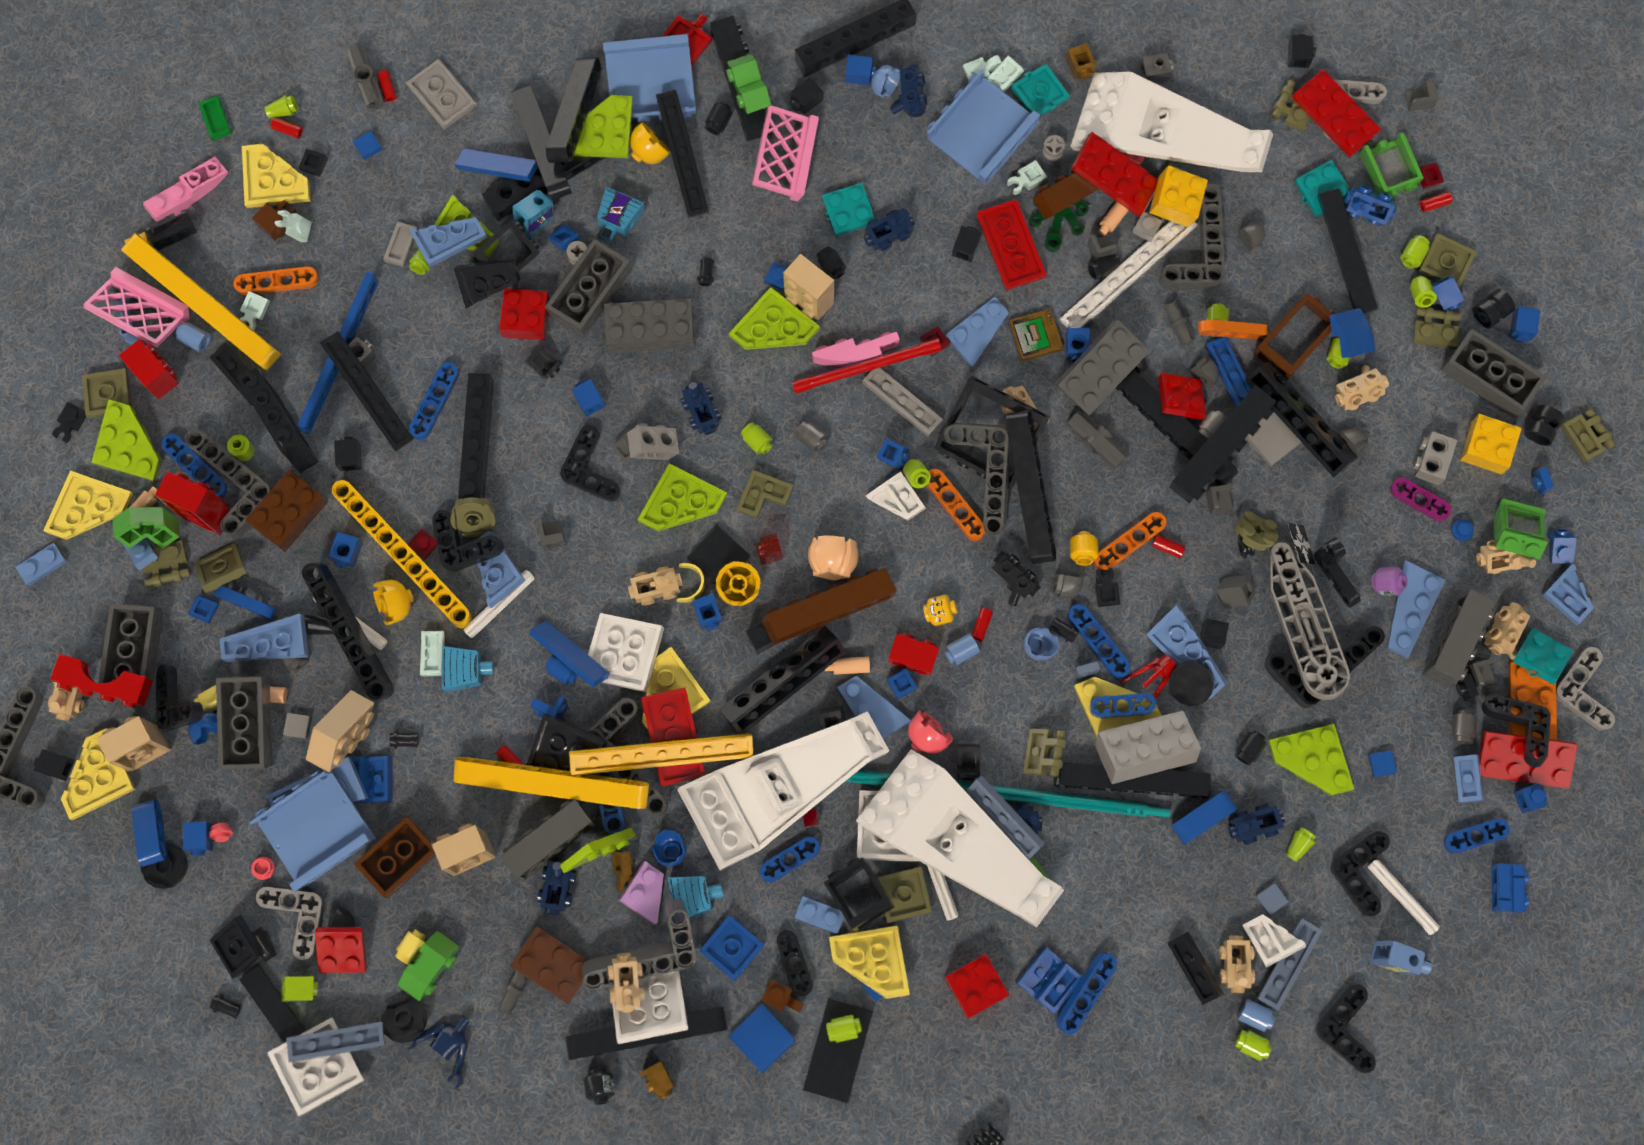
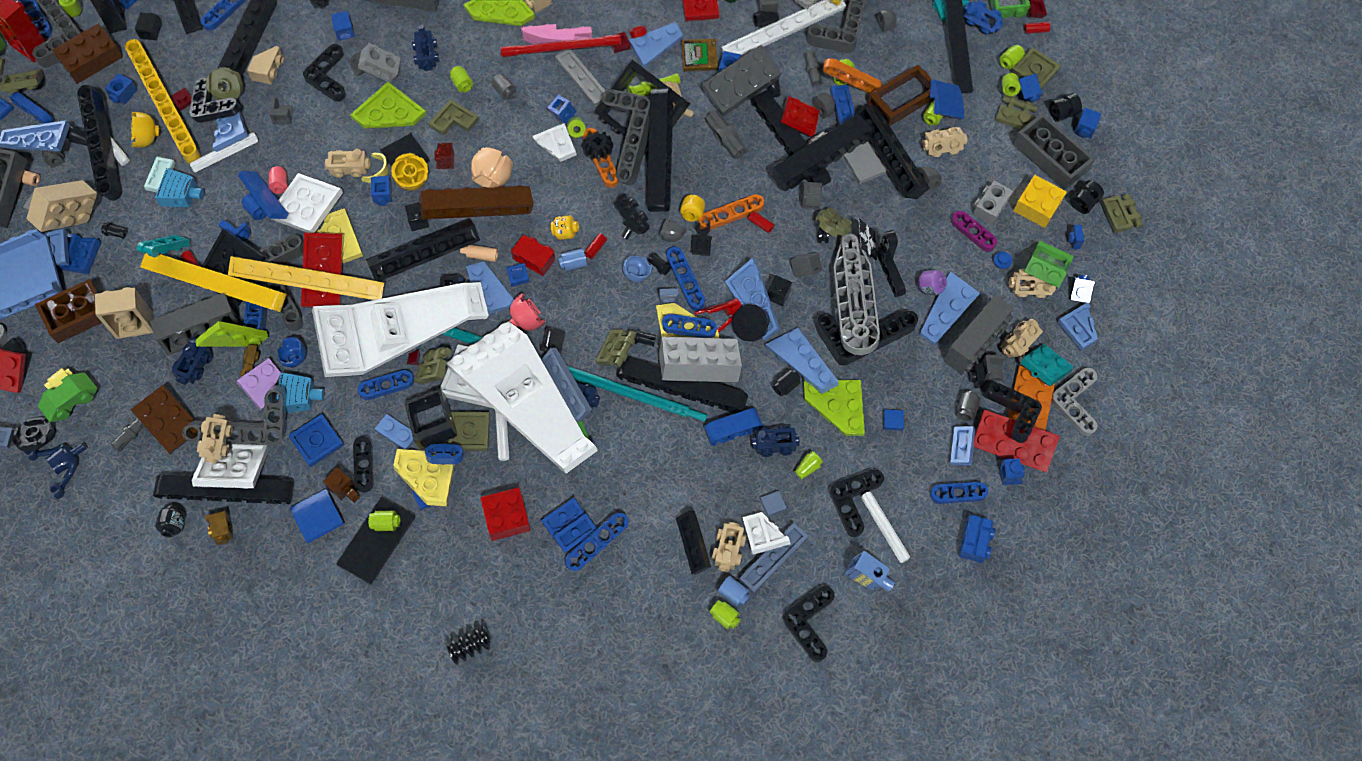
camera: 10 degrees right, 10 degrees down
(475, 749) = (162, 245): none -> teal plate
(510, 476) = (265, 65): none -> tan slope
(579, 628) = (278, 180): none -> coral brick
(840, 833) = (433, 366): none -> olive plate
(887, 937) = (444, 454): none -> blue beam
(946, 500) = (598, 146): none -> black gear
(953, 321) = (638, 31): none -> red tile
(980, 402) = (645, 88): none -> lime pin
(1071, 729) = (644, 338): none -> black pin
(1256, 709) = (802, 357): none -> medium blue wing

